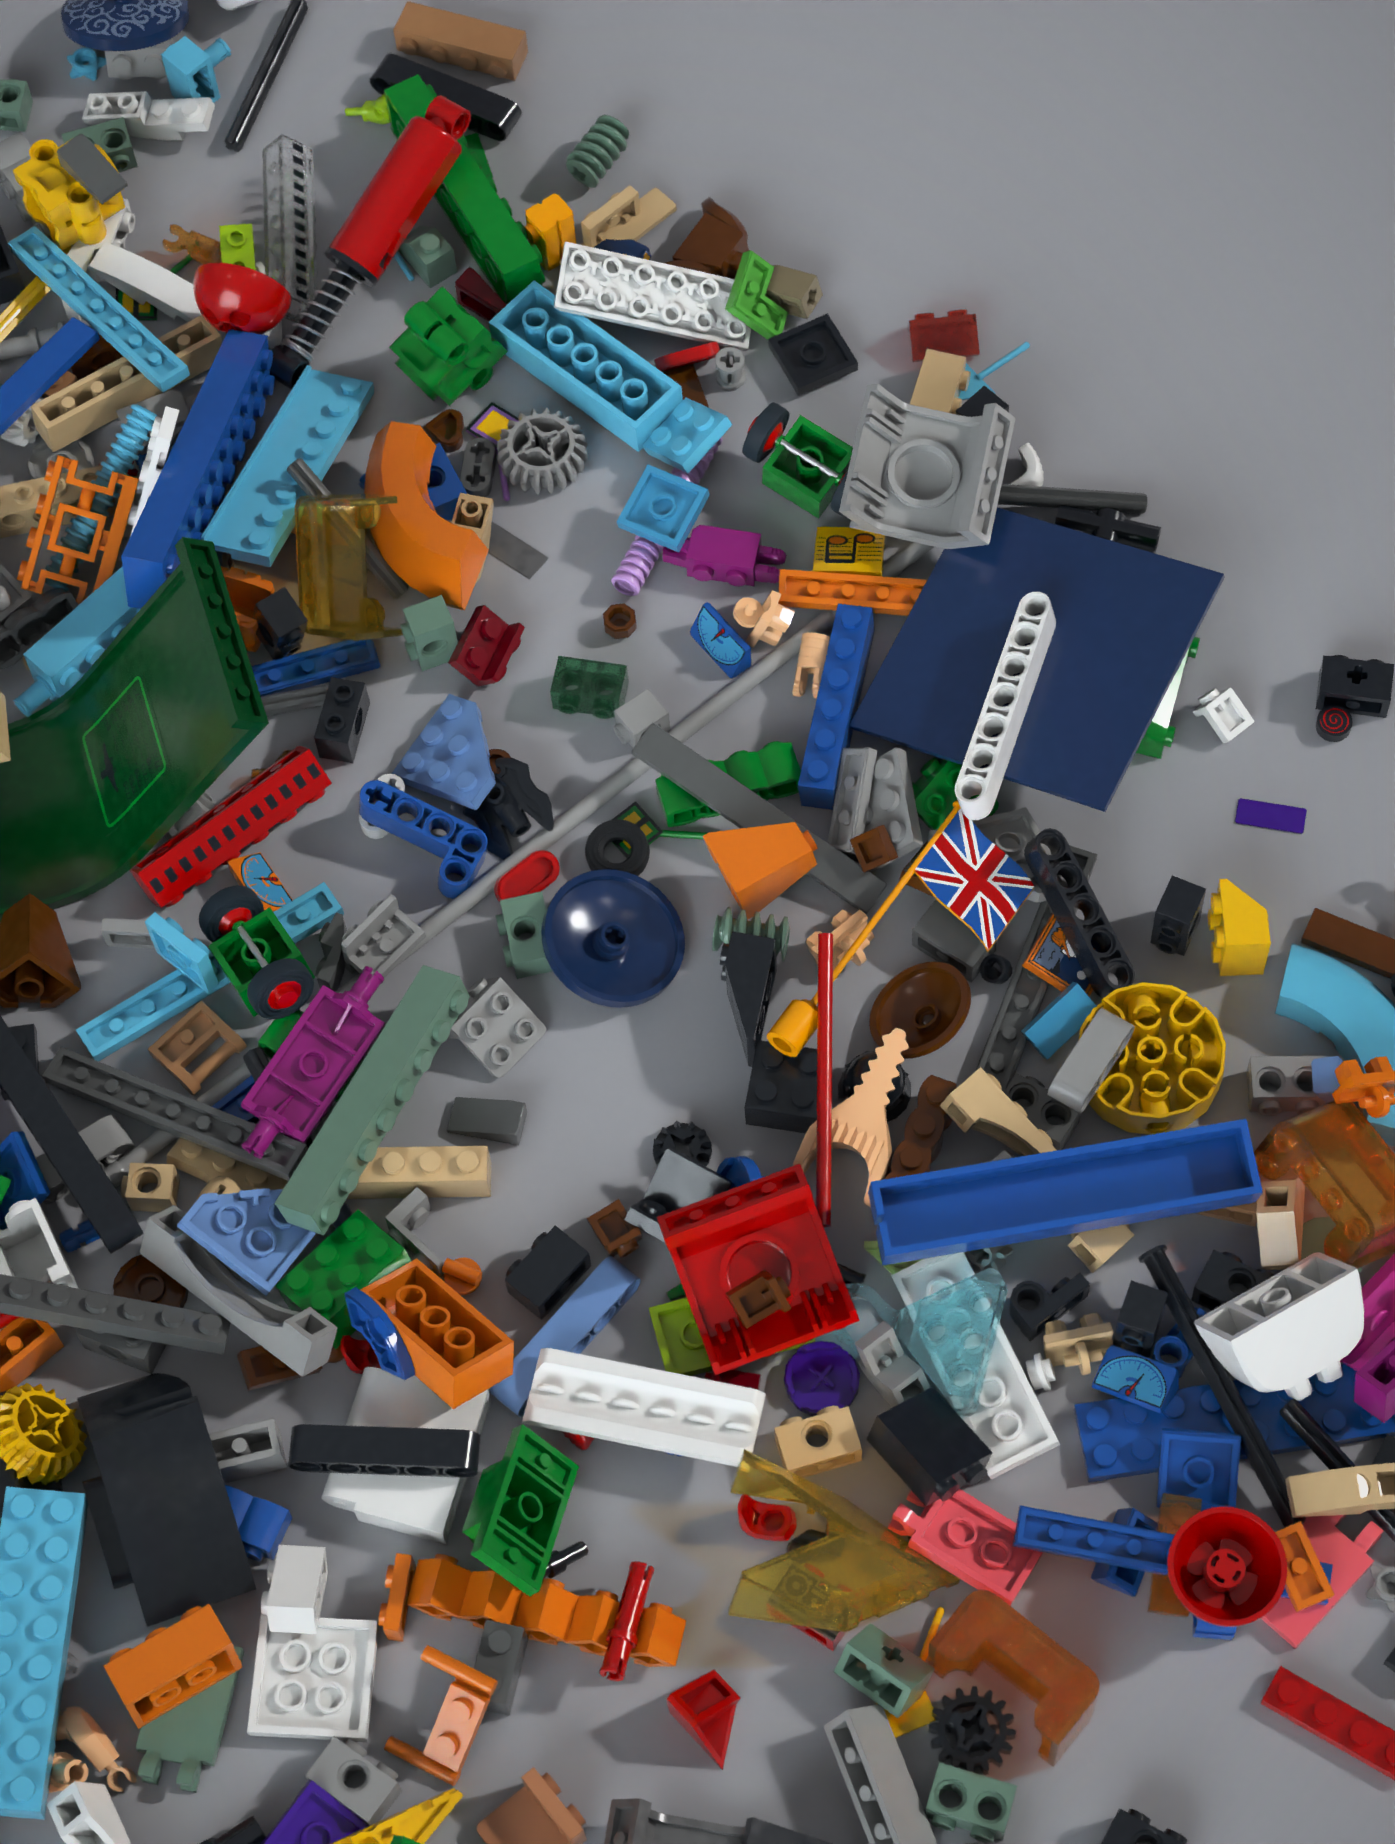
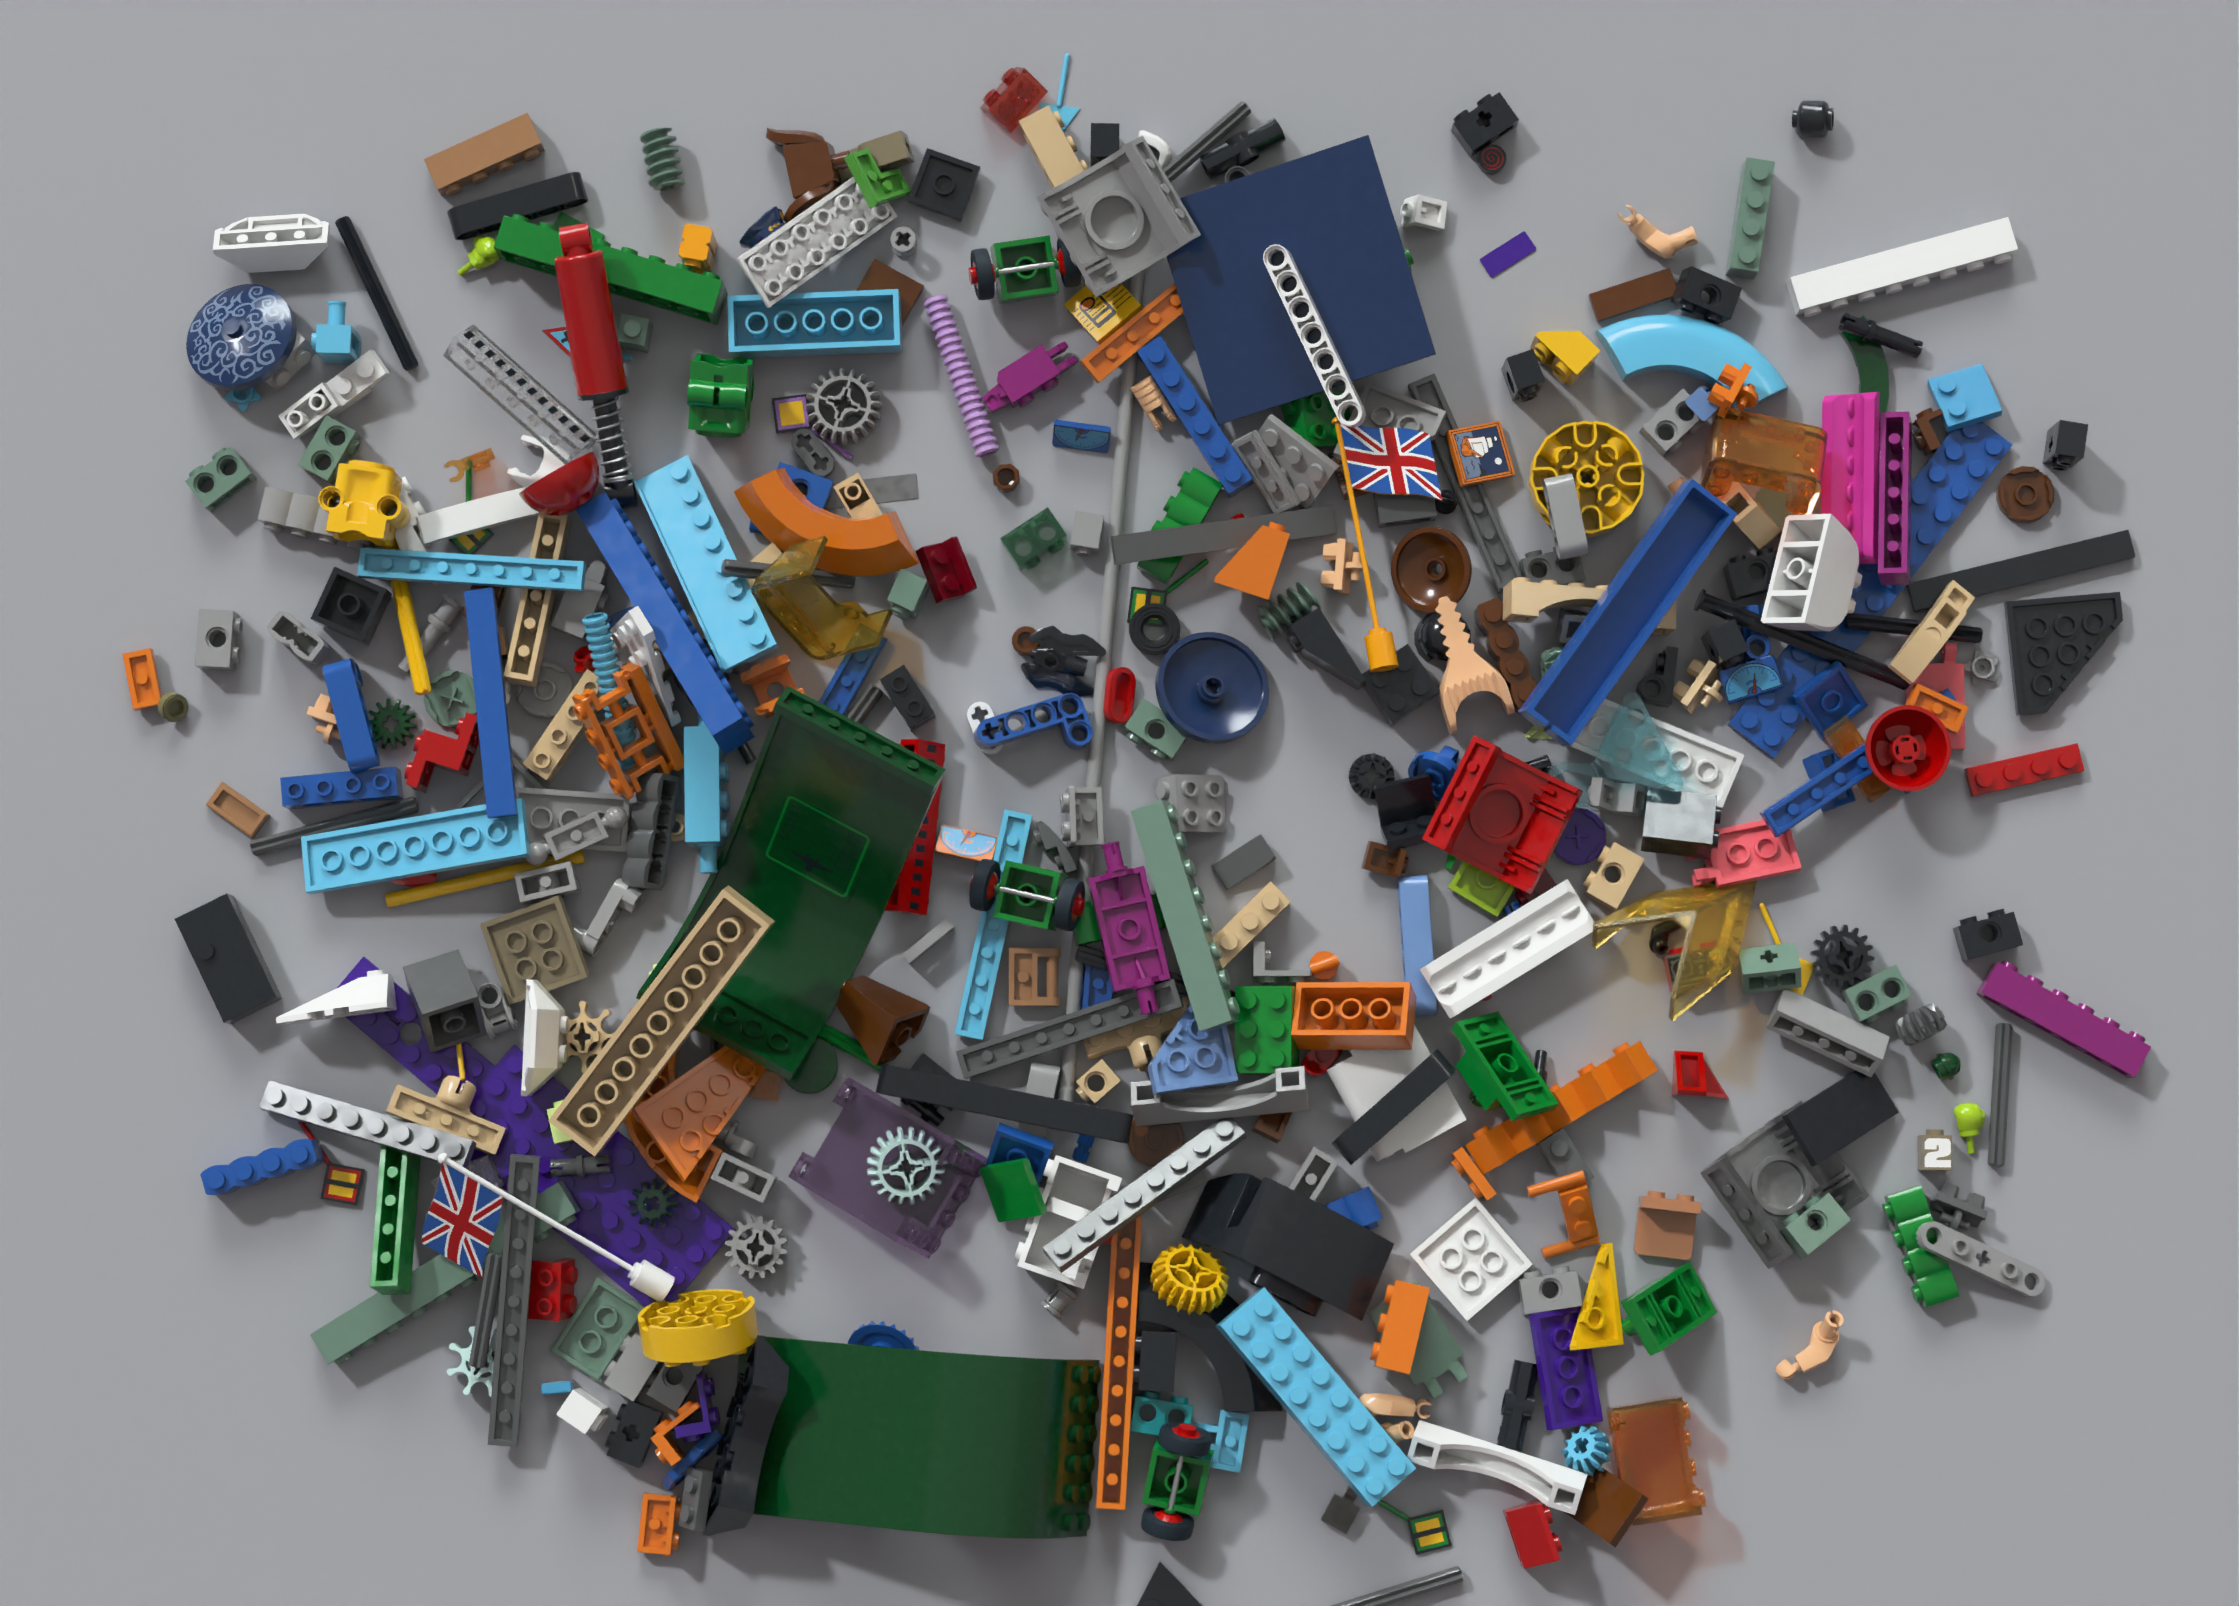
camera: 50 degrees left, 20 degrees up
(90, 168) = (383, 485): dark grey slope -> none
(181, 952) = (967, 933): medium azure plate -> none
(237, 245) = (511, 447): lime bracket -> none
(280, 624) = (811, 673): black brick -> none
(295, 1589) = (1418, 1223): white brick -> none
(380, 1332) = (1327, 1045): blue tile -> none
(446, 430) = (764, 445): reddish brown tile -> none
(451, 755) = (997, 660): medium blue plate -> none
(477, 295) = (692, 333): dark red slope -> none
(547, 1271) = (1373, 920): black brick -> none
(623, 1636) = (1617, 1078): red pin -> none
(626, 216) = (732, 205): tan bracket -> none
(663, 508) = (967, 382): dark azure plate -> none
(687, 356) = (868, 258): red tile -> none
(687, 435) = (928, 316): medium azure plate -> none
(759, 1298) = (1516, 829): reddish brown bracket -> none
(766, 619) = (1098, 400): light nougat hips -> none
(766, 1520) = (1626, 944): red hair -> none
(824, 1078) = (1426, 664): red piece -> none
(873, 848) = (1311, 493): reddish brown tile -> none
(1029, 1659) = (1879, 892): clear orange windscreen -> none
(1040, 1372) = (1694, 722): white plate -> none
(1059, 1020) = (1512, 500): dark azure tile -> none
(1081, 896) = (1457, 429): black beam -> none

